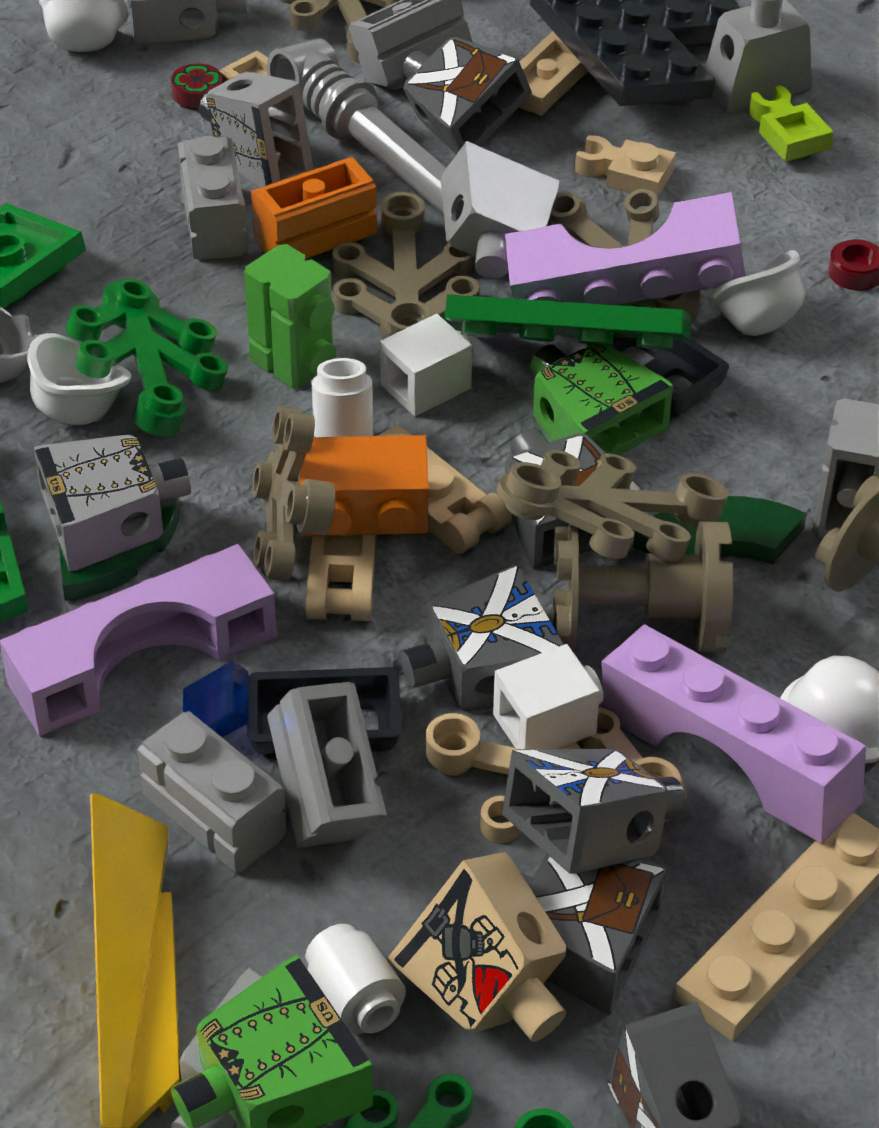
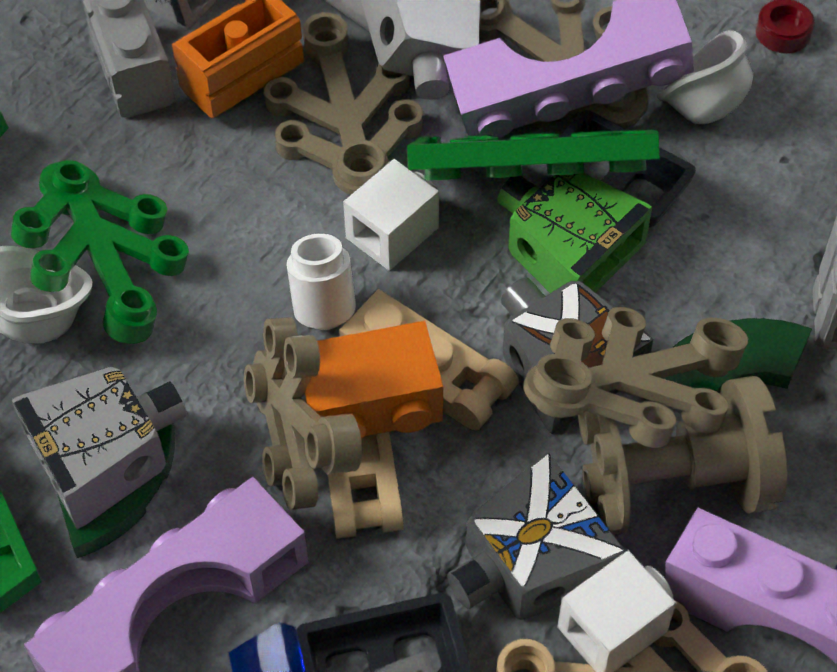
camera: 10 degrees left, 10 degrees up
(289, 315) = (244, 185): bright green brick -> none

